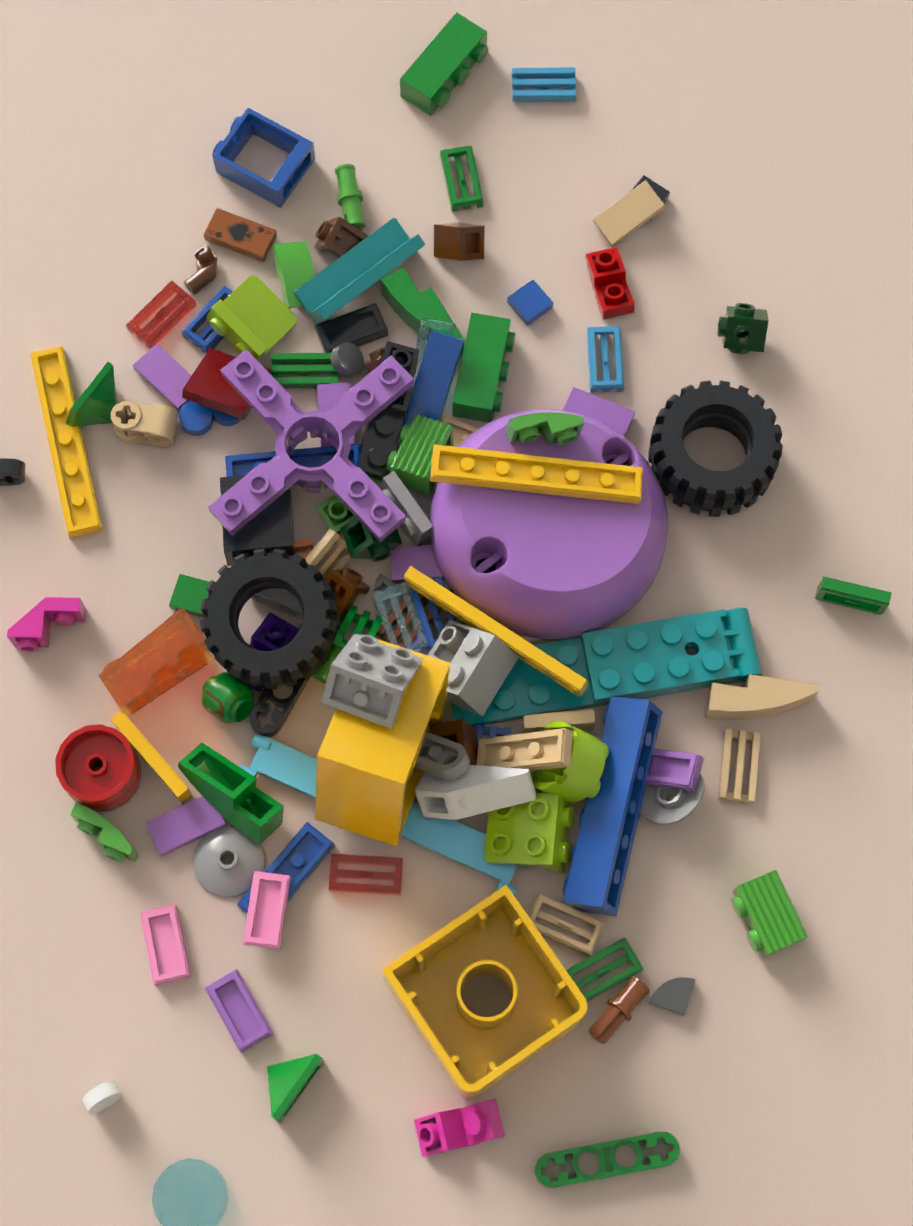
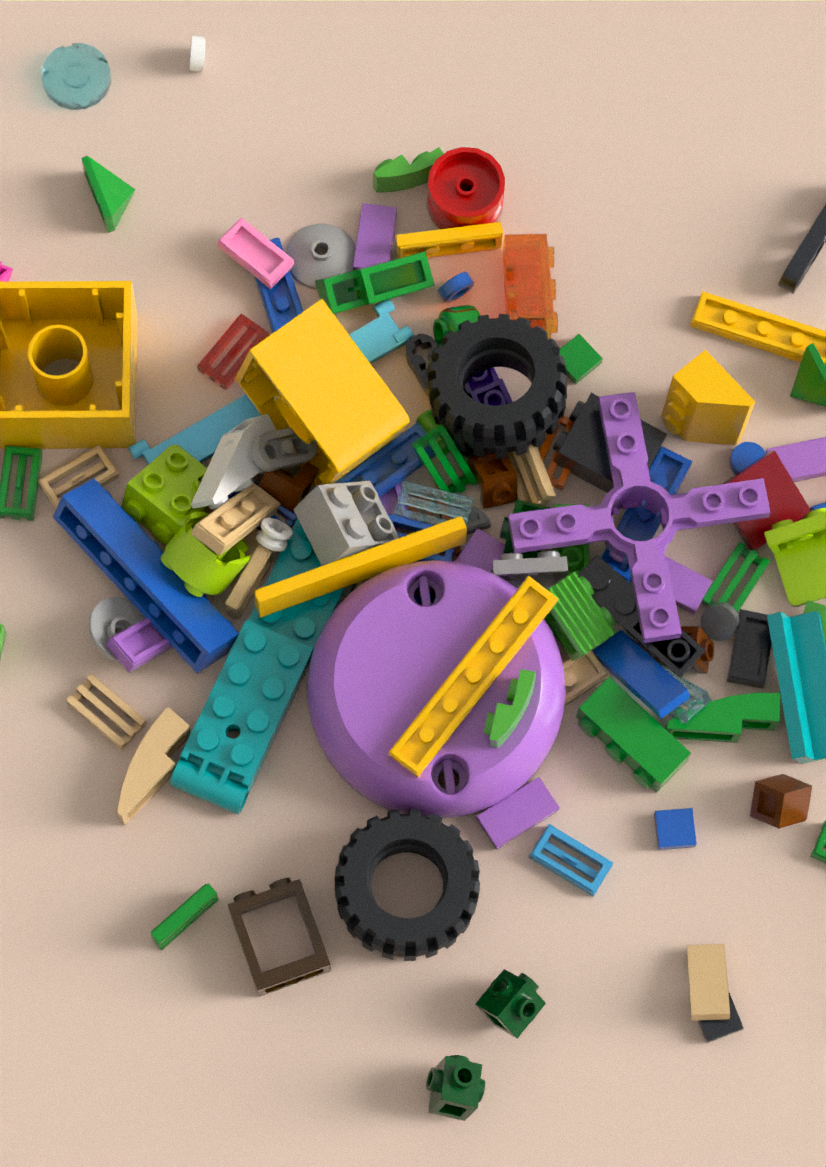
camera: 120 degrees right, 0 degrees up
(34, 627) = (628, 219): dark pink slope -> none
(146, 423) = (768, 411): tan piece -> none
(165, 945) = (285, 168): bright pink tile -> none
(176, 458) = (706, 403): none -> yellow slope
(190, 726) = (456, 287): none -> blue tile
(239, 1011) = (192, 191): medium lavender tile -> none
(370, 679) = (361, 384): light grey bracket -> none
(511, 720) = (274, 534): none -> white bush
(610, 283) = (647, 917): red slope -> none
(832, 329) = (455, 1087): none -> dark green brick
(834, 493) = (292, 972): none -> dark brown window

